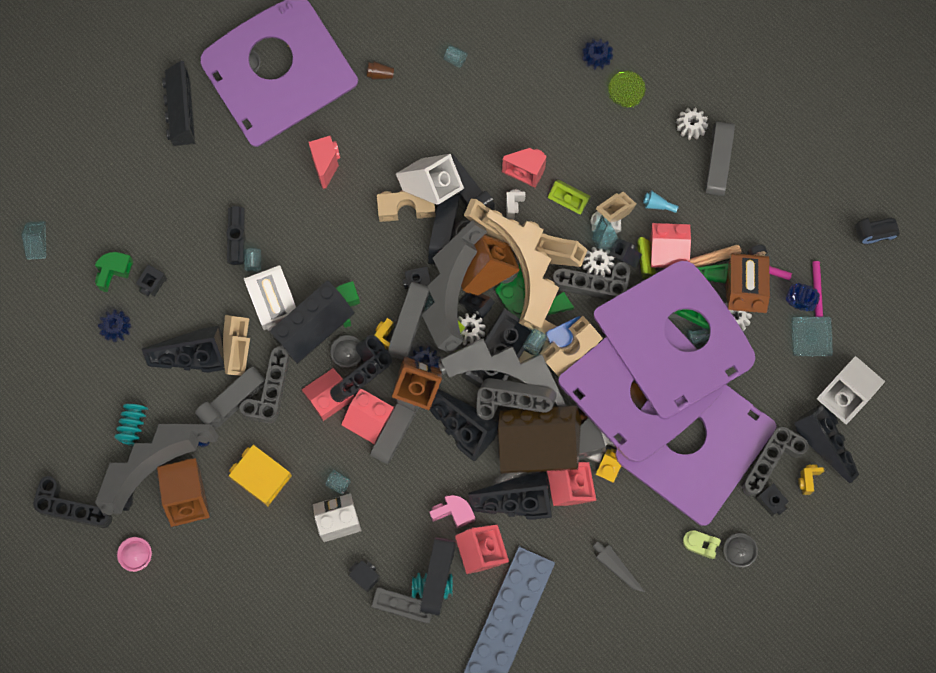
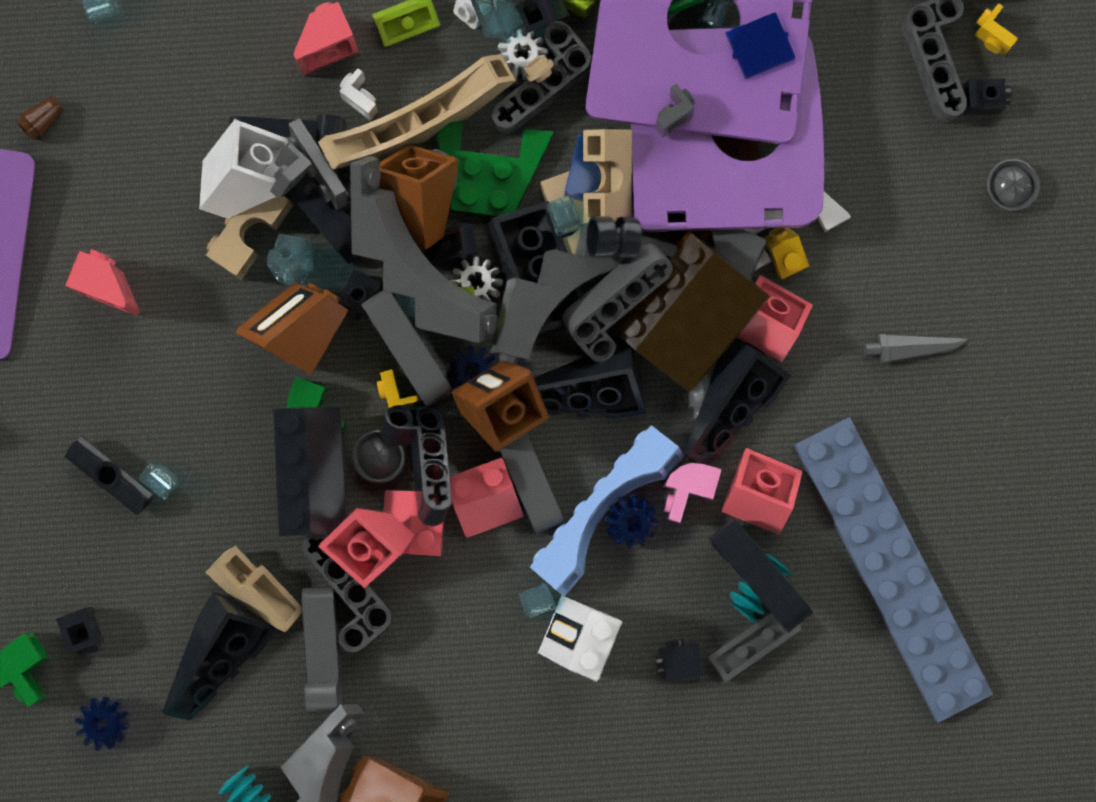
camera: 55 degrees left, 10 degrees up
(259, 475) = (448, 691): yellow brick -> none
(270, 296) = (232, 496): white slope -> none
(299, 375) = (367, 543): none -> coral slope
(371, 477) = (646, 462): none -> light blue arch
(377, 261) = (296, 325): none -> dark orange slope
(407, 235) = (291, 259): none -> clear light blue brick
(409, 490) = (630, 532): none -> clear blue gear
(446, 198) = (291, 170): none -> dark grey bracket
(460, 208) = (330, 185): none -> dark grey plate
(523, 241) = (466, 134): tan arch -> none
(541, 369) = (609, 236): none -> black wheel
(596, 273) = (539, 69): none -> tan plate
(626, 352) = (674, 116): none -> dark grey bracket
(694, 540) = (957, 229): yellowish green plate -> none
(697, 366) = (760, 45): none -> clear blue piece
(706, 478) = (895, 153): medium lavender door -> none

